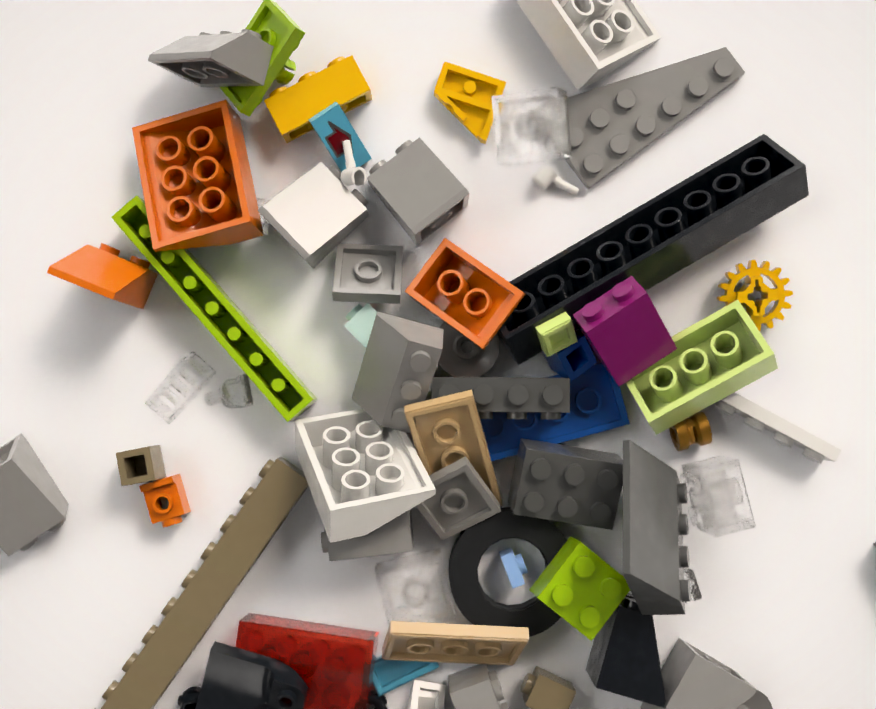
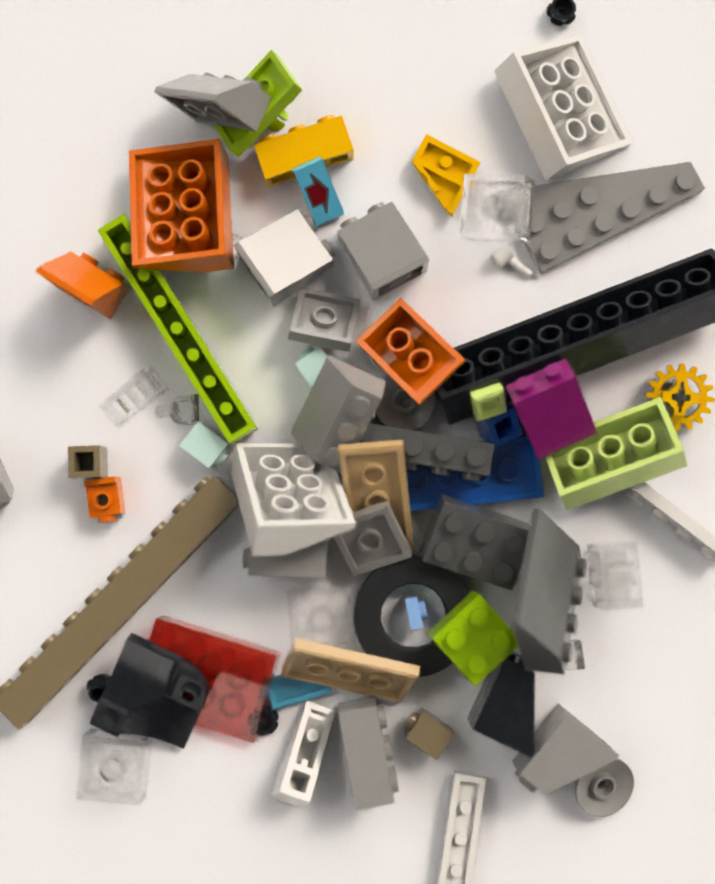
camera: 15 degrees right, 0 degrees up
(264, 427) = (206, 446): none -> light aqua brick
(352, 174) = (324, 225): white hand -> none
(691, 431) = (599, 513): pearl gold wheel -> none

